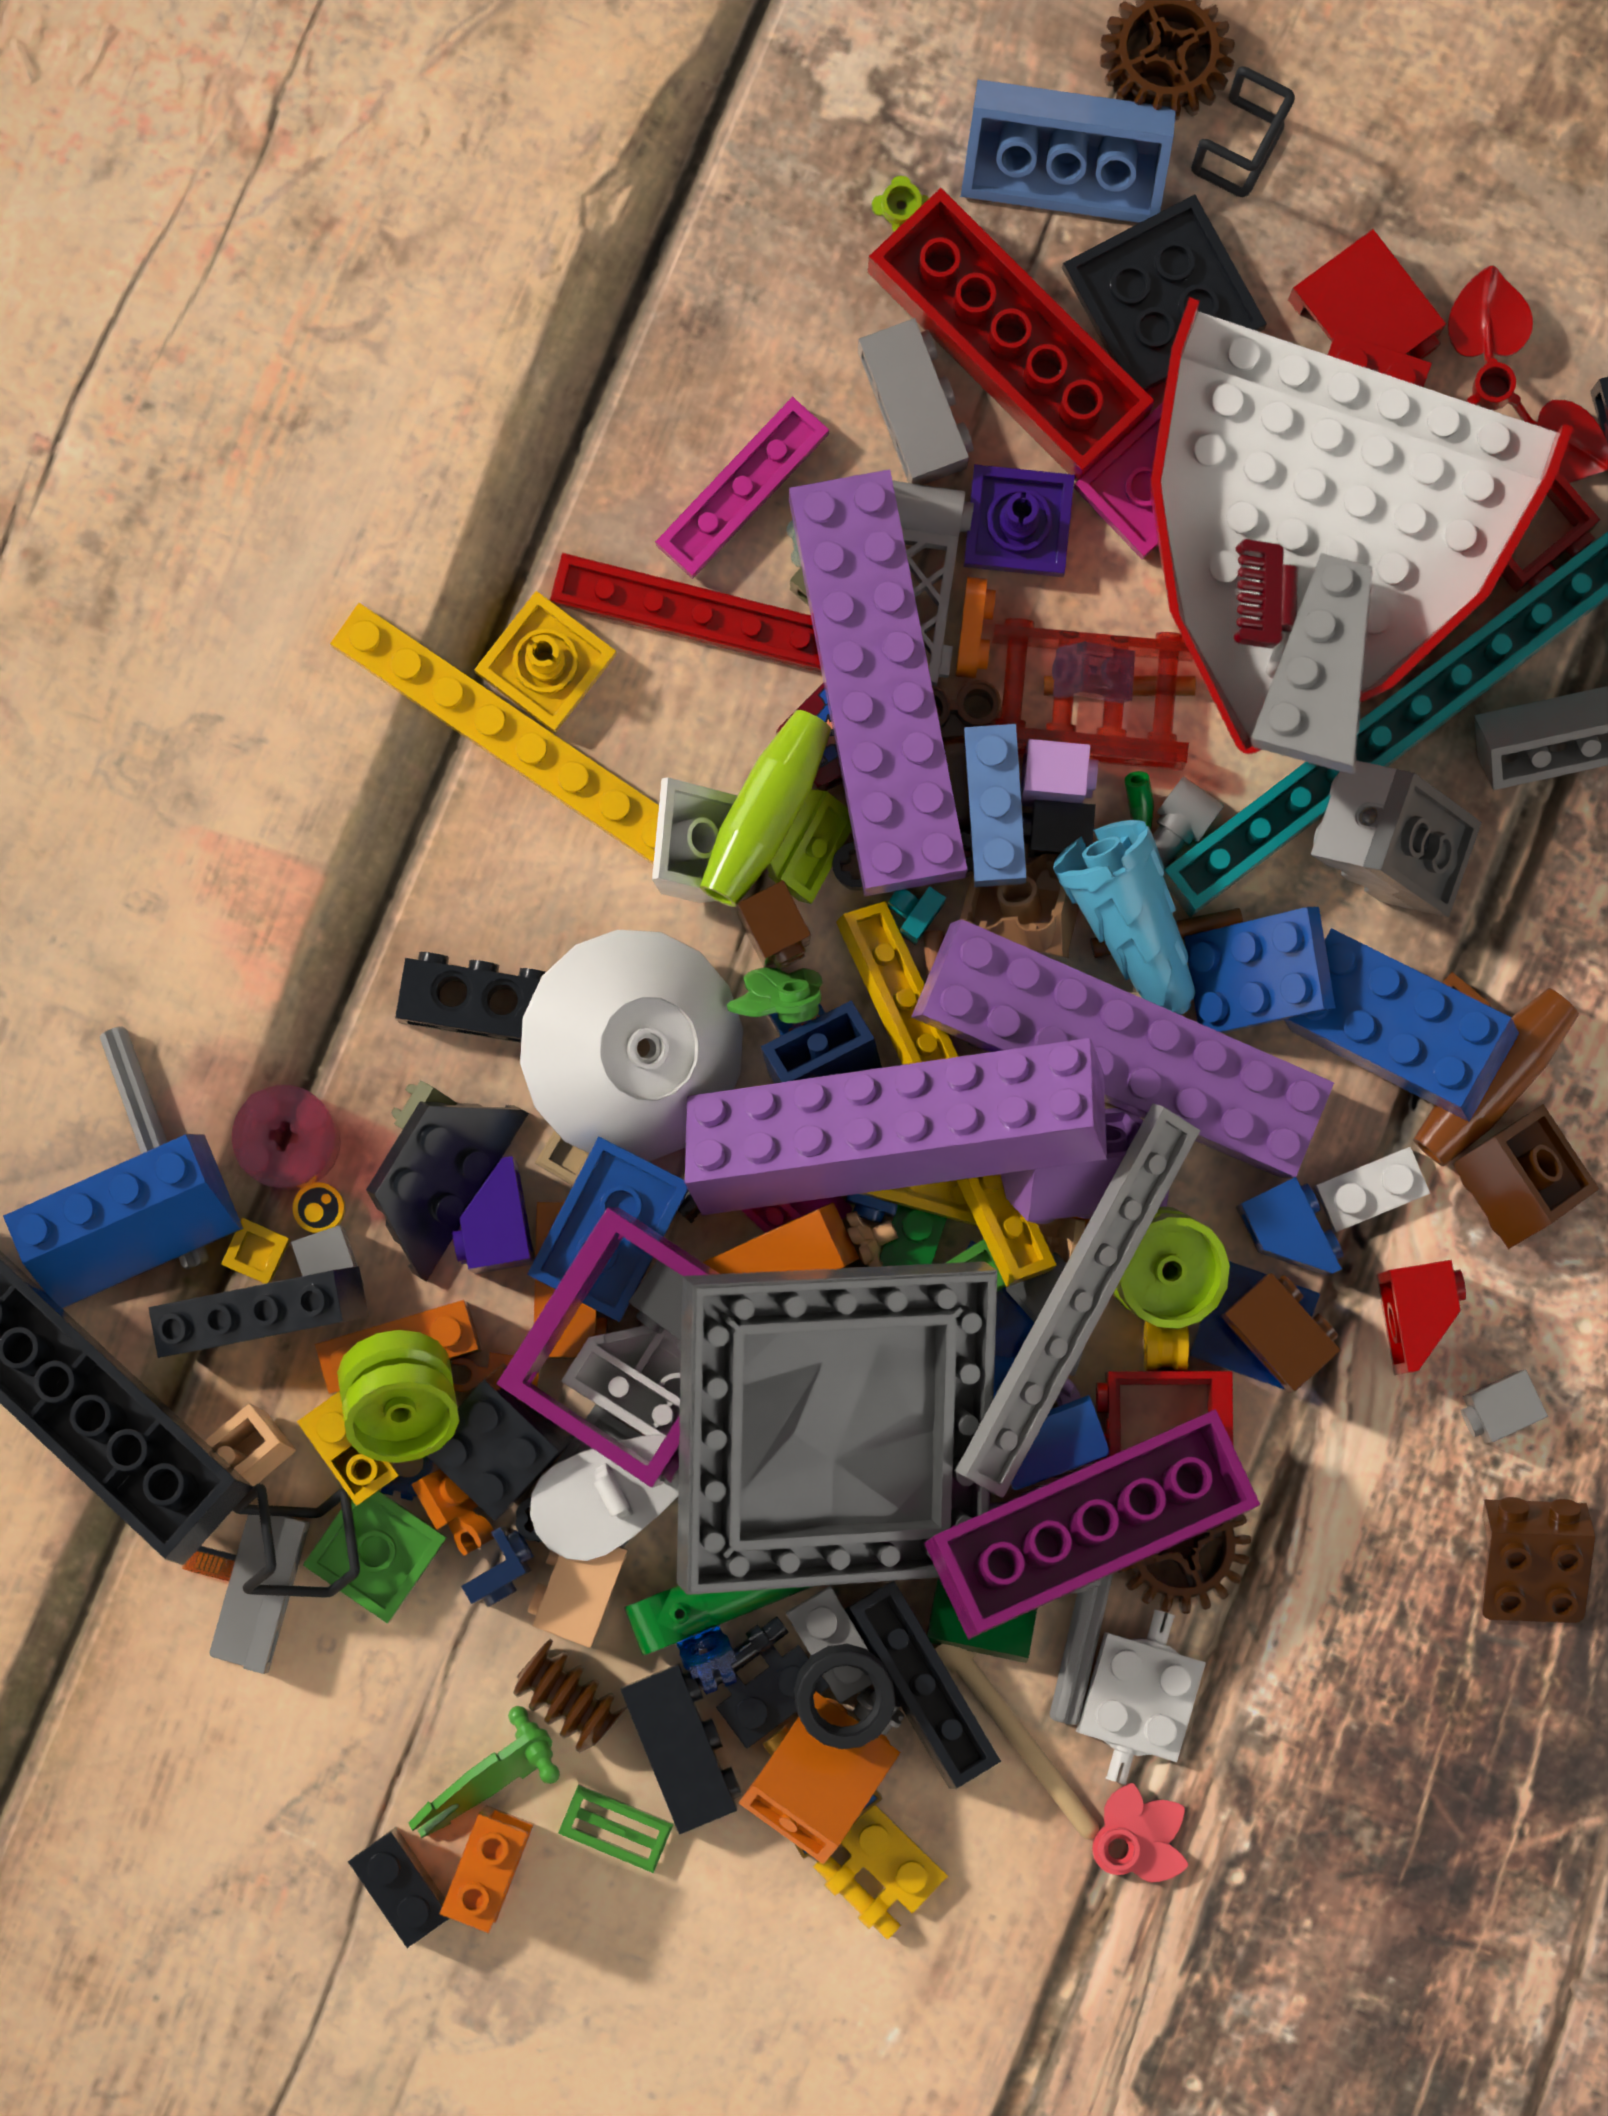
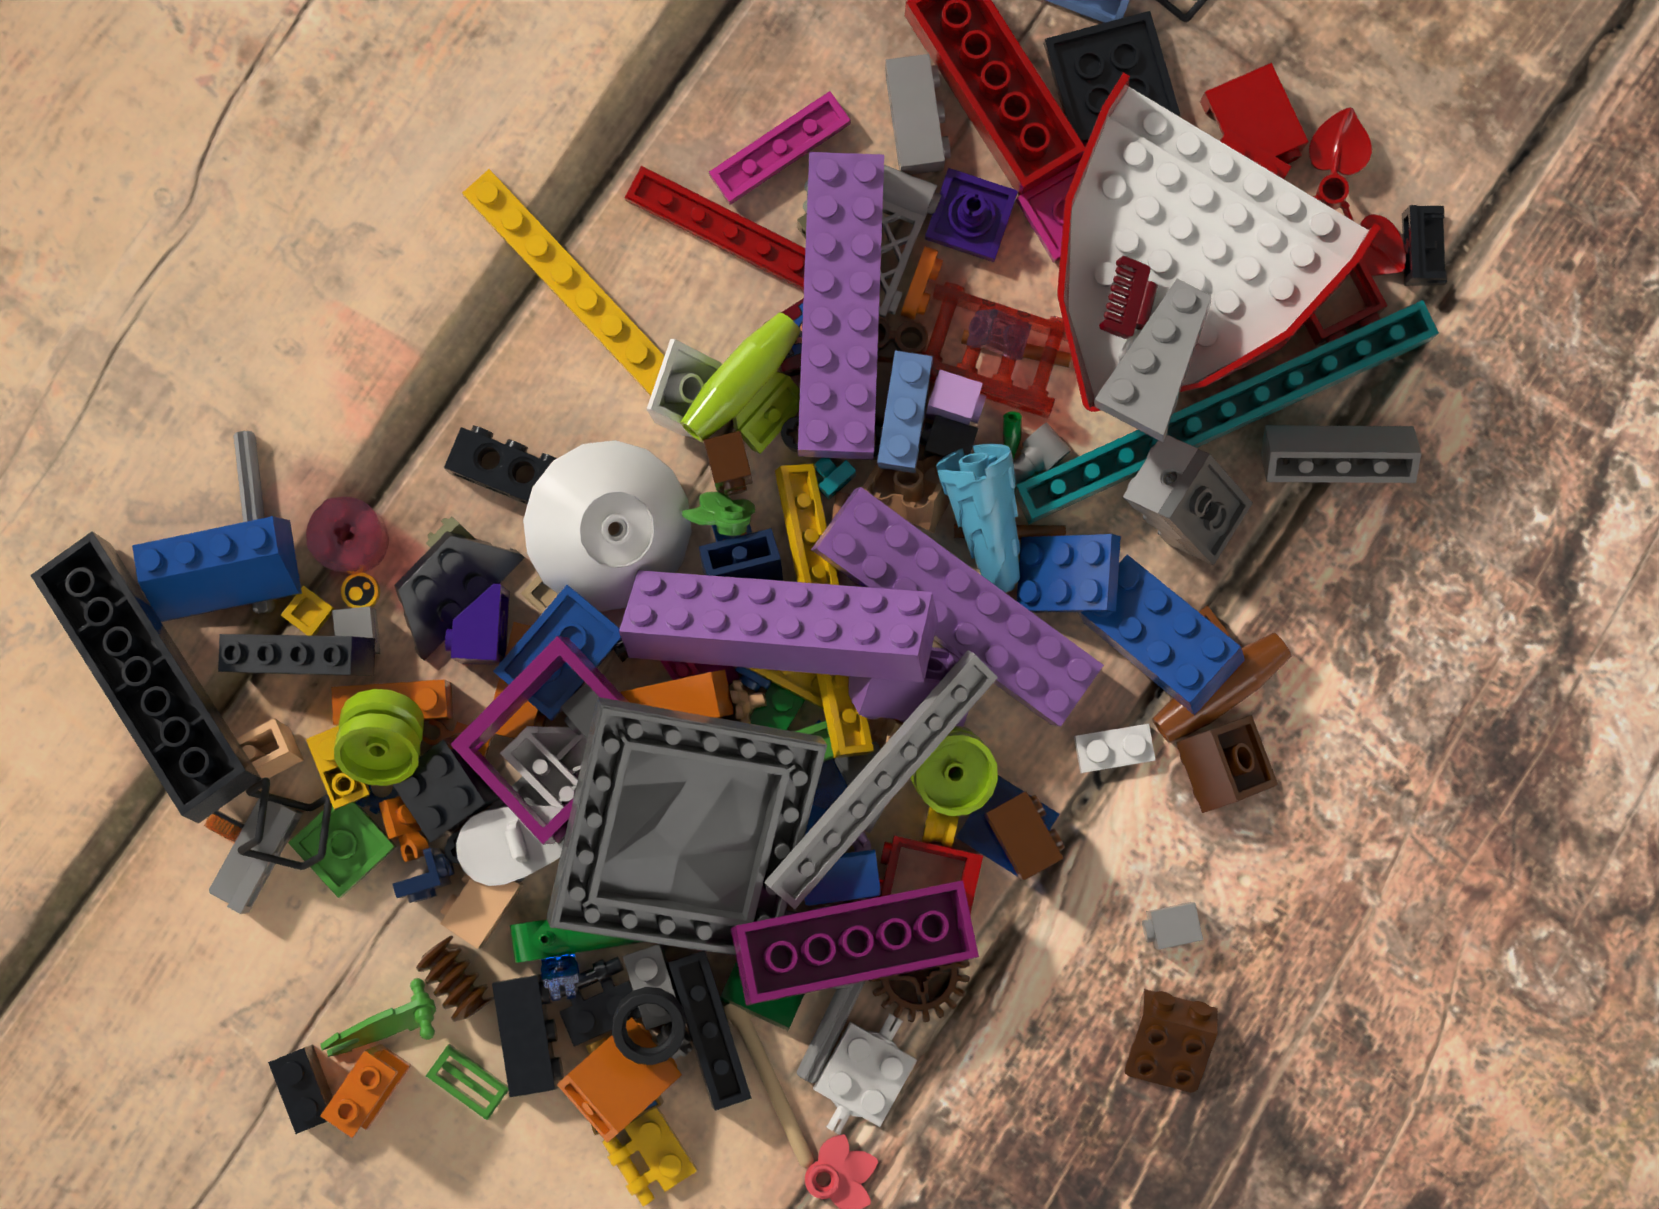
camera: 15 degrees right, 0 degrees up
(545, 661) = (611, 240): yellow plate -> none
(1286, 1228) = (1047, 763): blue slope -> none
(1418, 1310) = (1127, 842): red slope -> none

